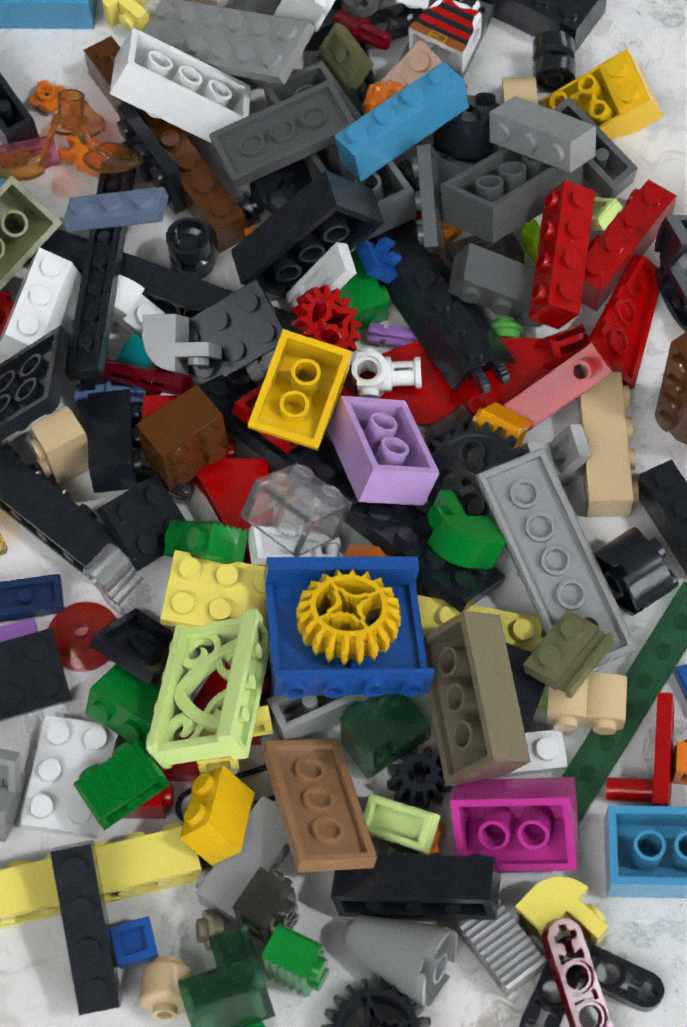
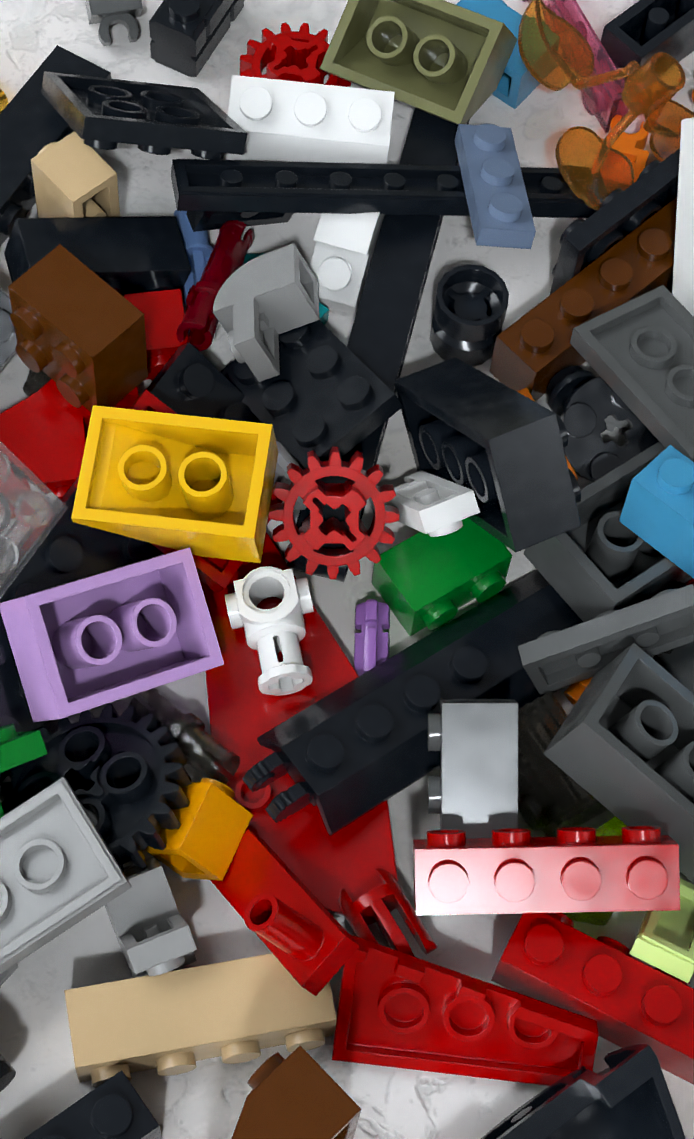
camera: 70 degrees right, 0 degrees up
(377, 260) = (489, 584): blue tile -> none
(507, 327) = (407, 819): bright green plate -> none

